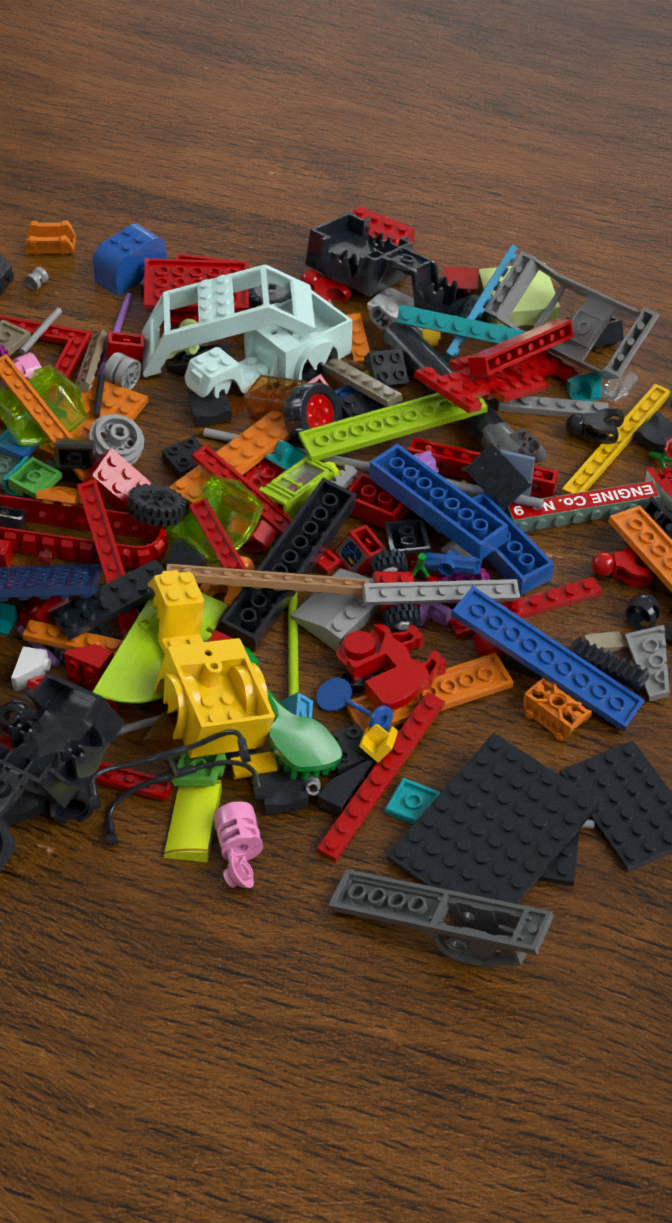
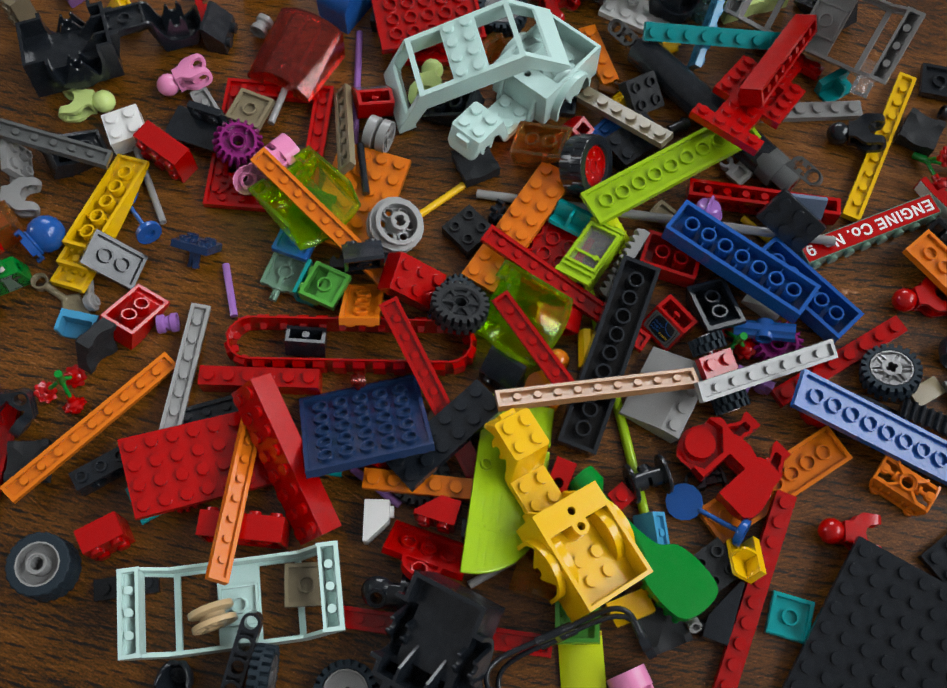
camera: 10 degrees left, 20 degrees up
(66, 299) = (299, 53): none -> clear red windscreen
(169, 433) = (442, 199): none -> yellow bar
(218, 441) = (497, 212): none -> black plate
(274, 680) = (621, 496): none -> red brick
(301, 667) = (648, 476): none -> black hose
(467, 443) = (737, 173): none -> light grey plate
(475, 735) = (845, 532): none -> red piece
(570, 617) = (890, 372): none -> wheel

